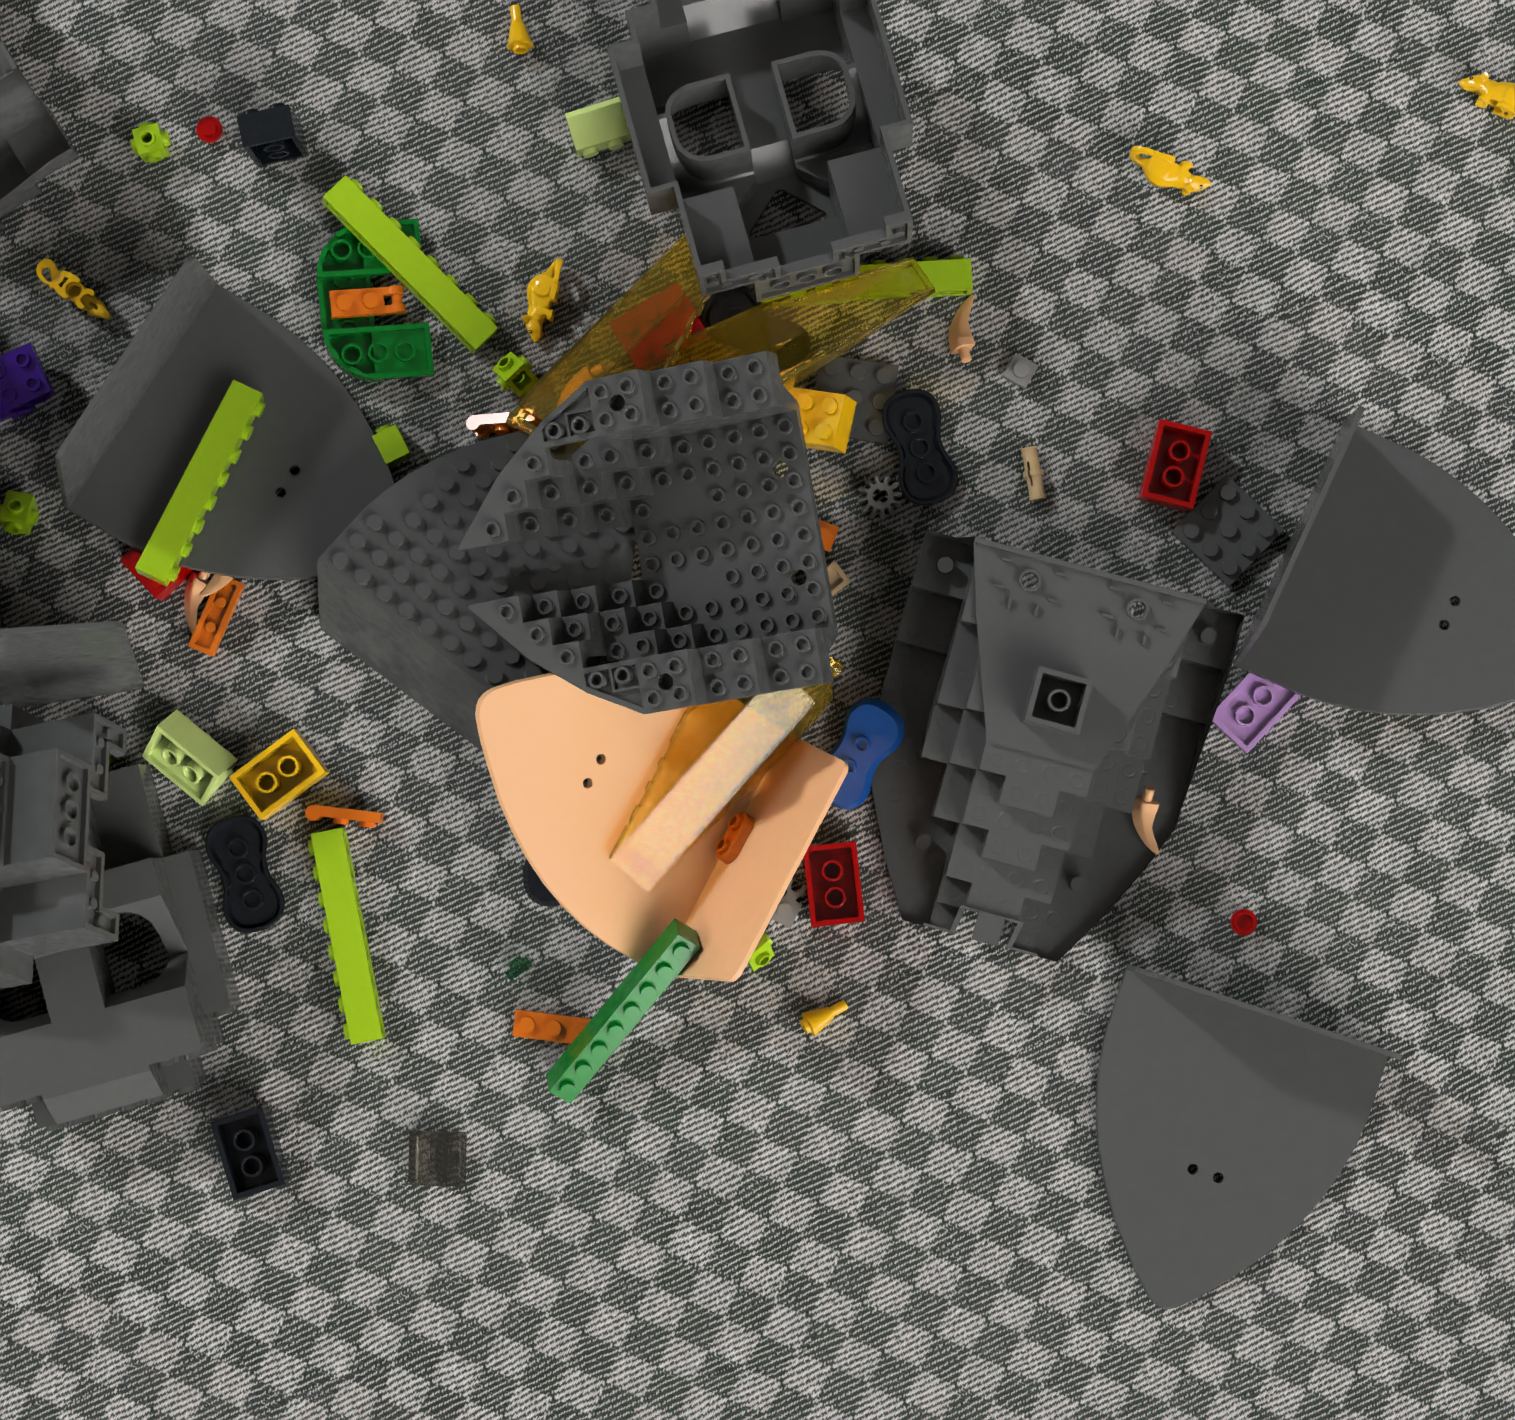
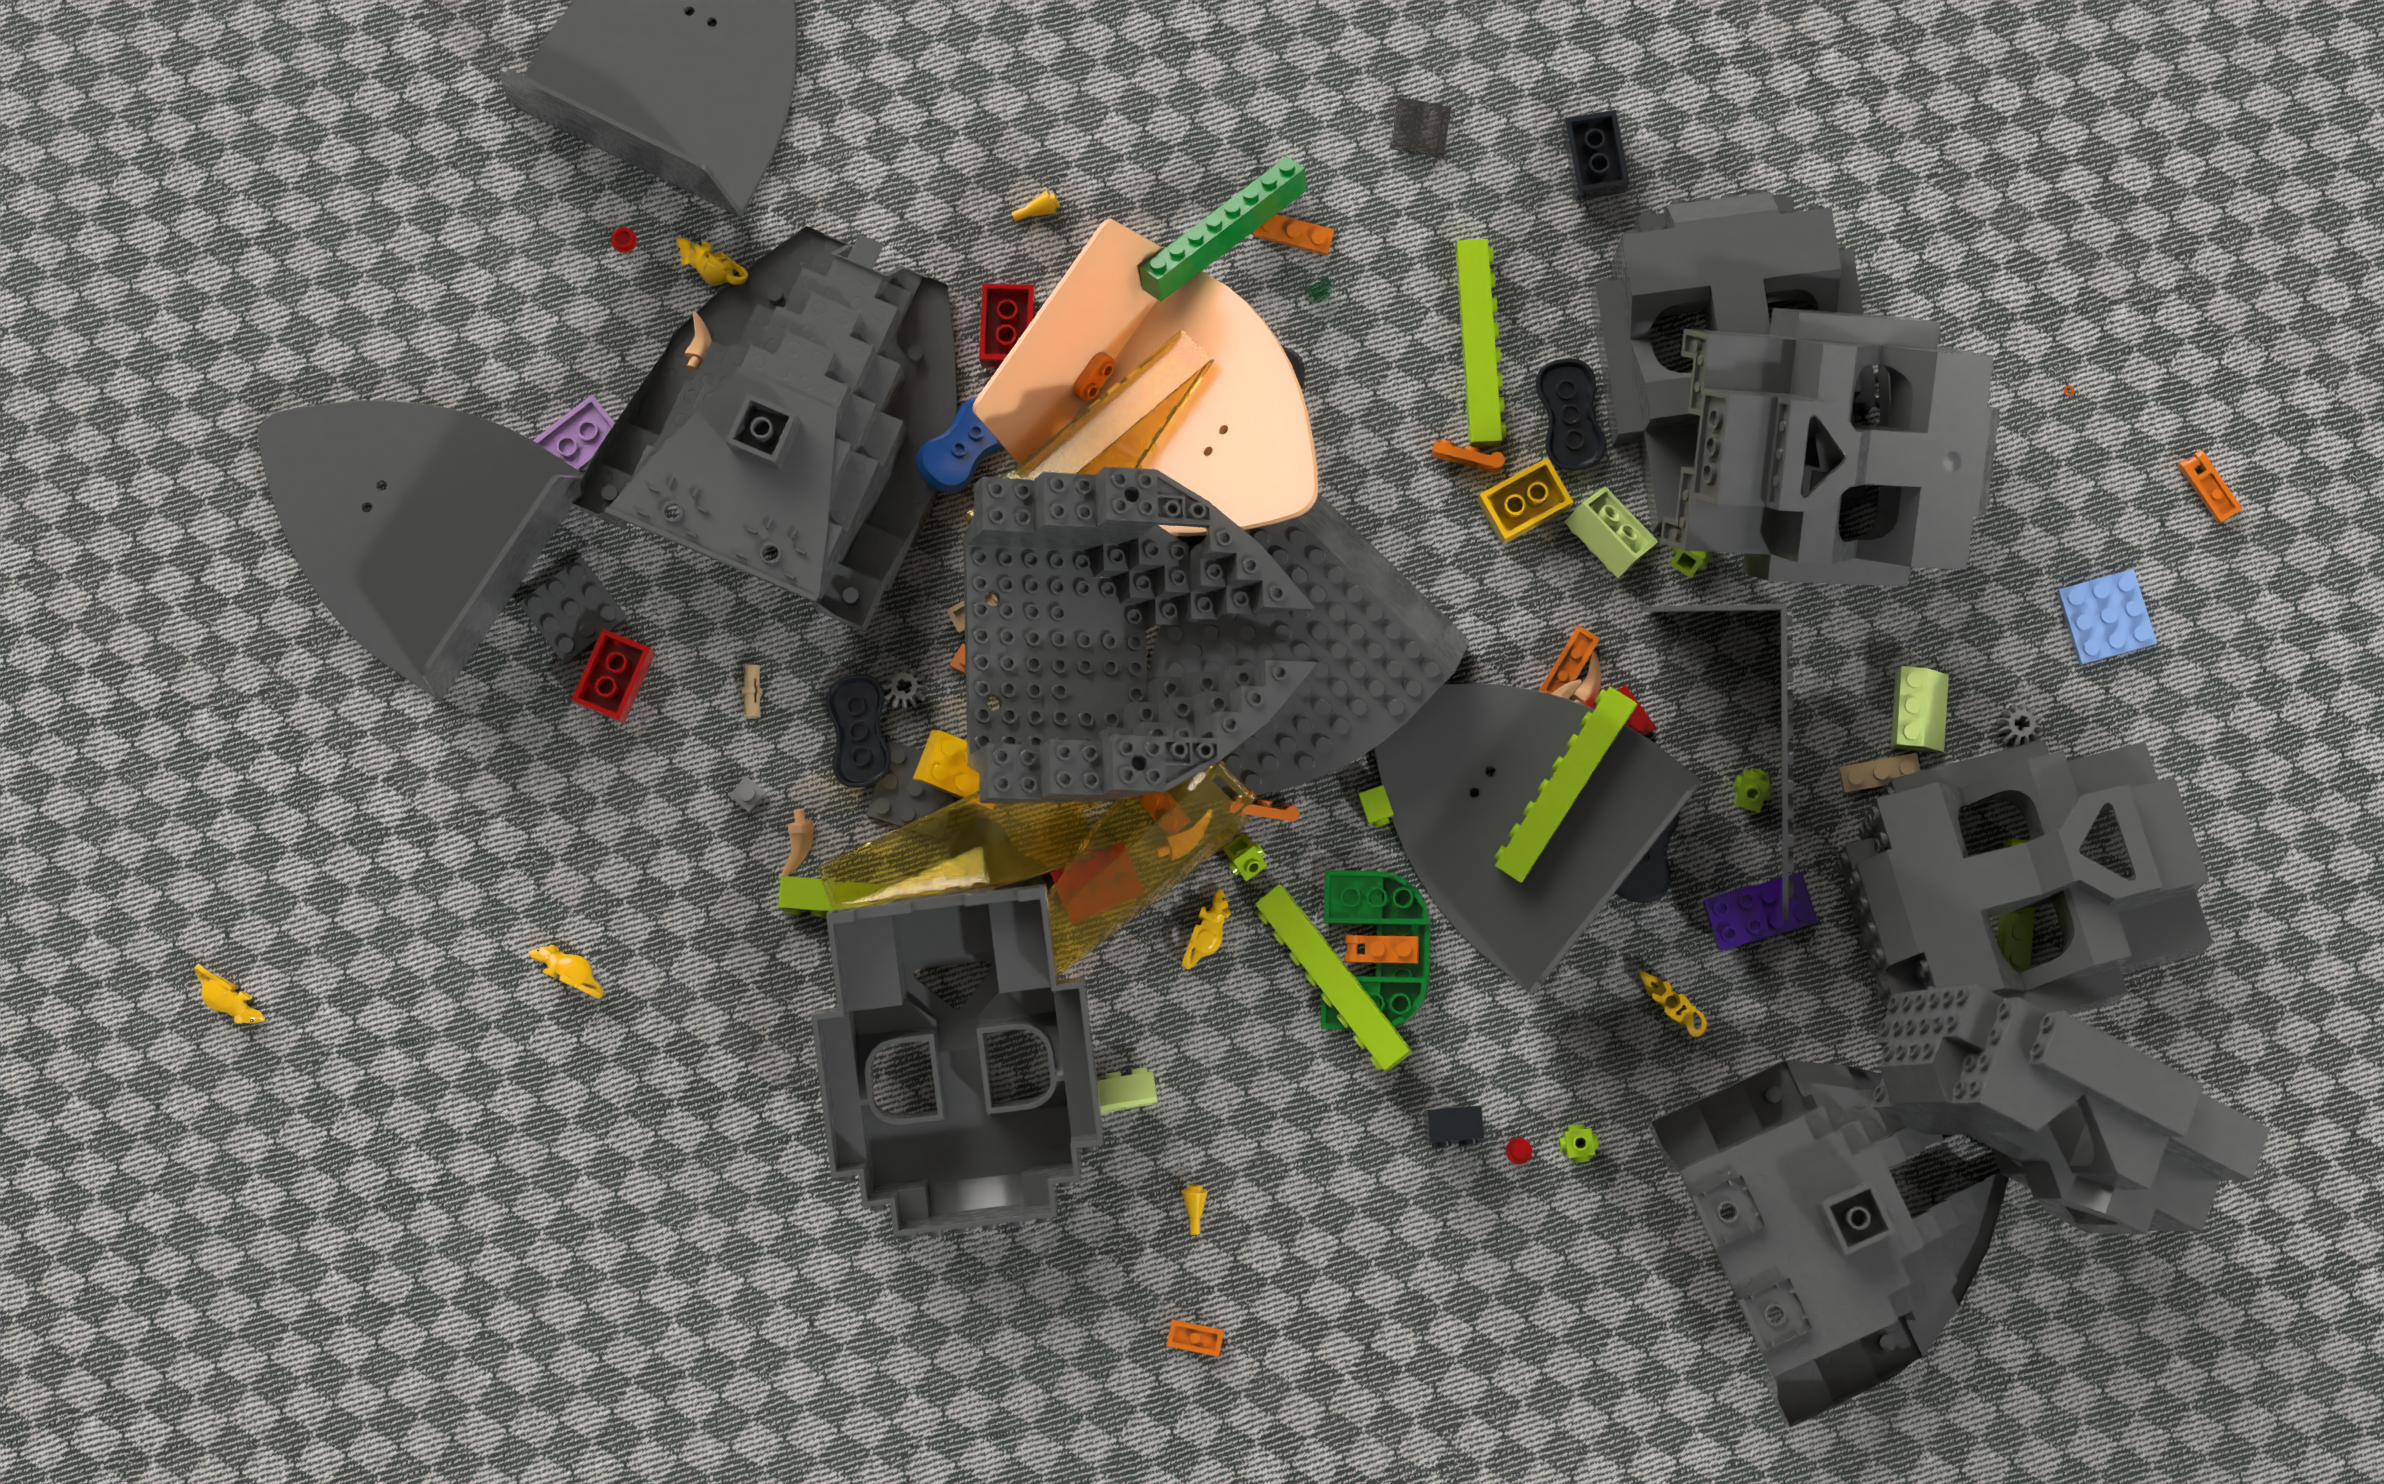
camera: 170 degrees left, 5 degrees down
(1146, 904) = (711, 267): none -> yellow animal

